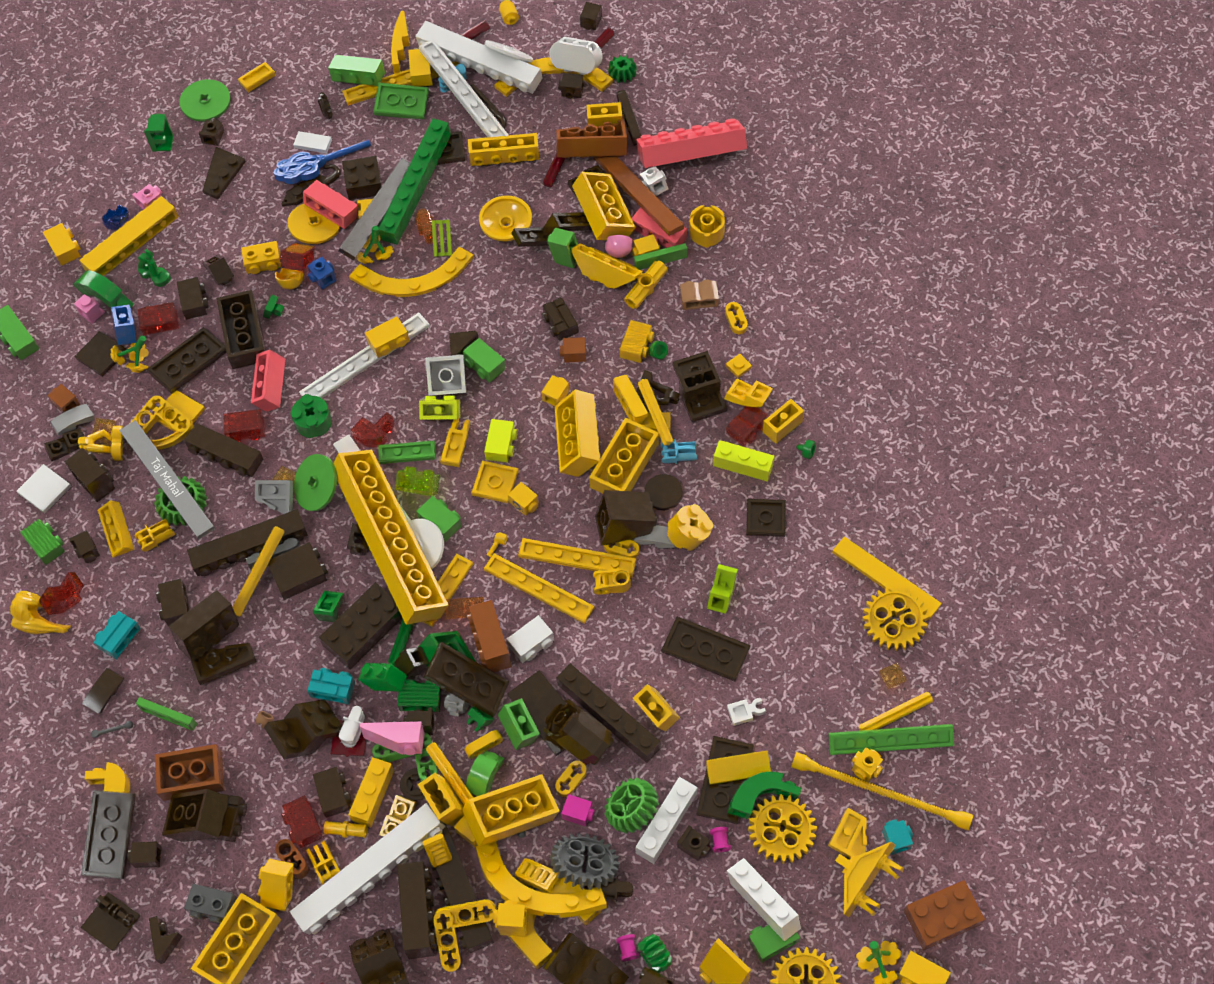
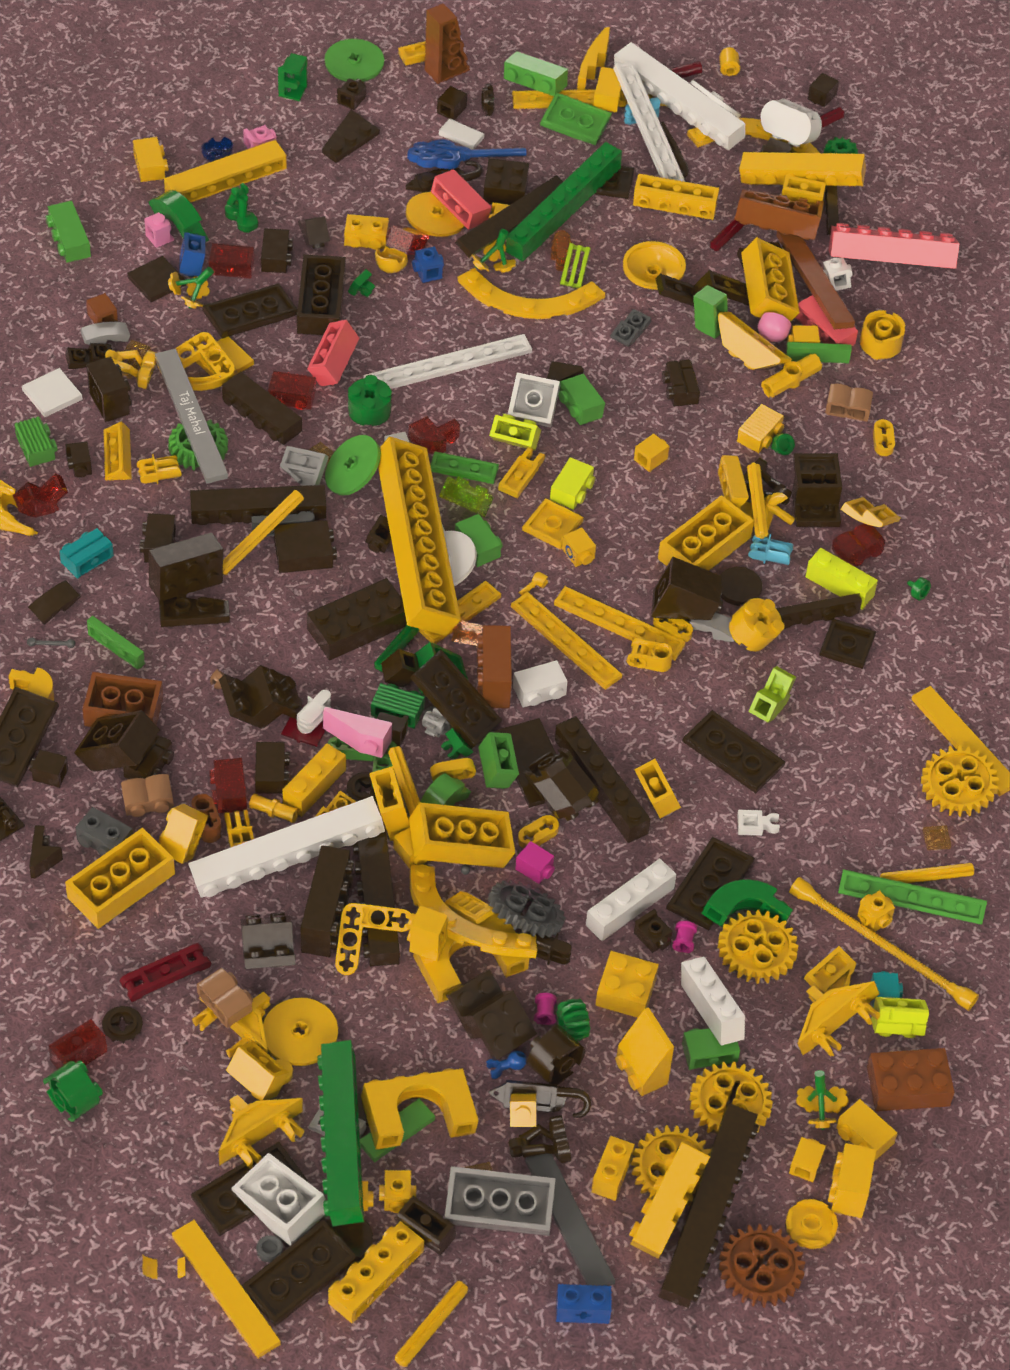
camera: 10 degrees right, 10 degrees down
(236, 853) = (147, 795): none -> medium nougat brick
(274, 69) = (443, 45): none -> dark orange wedge
(296, 116) = (452, 103): none -> dark brown brick
(328, 606) = (325, 590): green slope -> none
(331, 686) = (304, 667): teal brick -> none
(382, 677) = (363, 671): green brick -> none
(387, 337) = (480, 346): yellow brick -> none
(437, 850) = (369, 846): yellow slope -> none
(503, 280) = (631, 328): none -> dark grey slope
(573, 350) = (686, 417): dark orange brick -> none
(577, 433) = (661, 497): yellow brick -> none
(610, 90) = (824, 167): none -> yellow brick
(635, 808) = (597, 872): bright green gear -> none
(668, 411) = (771, 506): none -> yellow plant
(688, 903) = (626, 984): none -> yellow brick
(737, 767) = (725, 869): yellow slope -> none
(738, 365) = (870, 486): yellow plate -> none
(738, 494) = (820, 610): none -> dark brown plate
(783, 421) = (900, 551): yellow brick -> none
(918, 858) = (900, 1017): none -> neon yellow brick

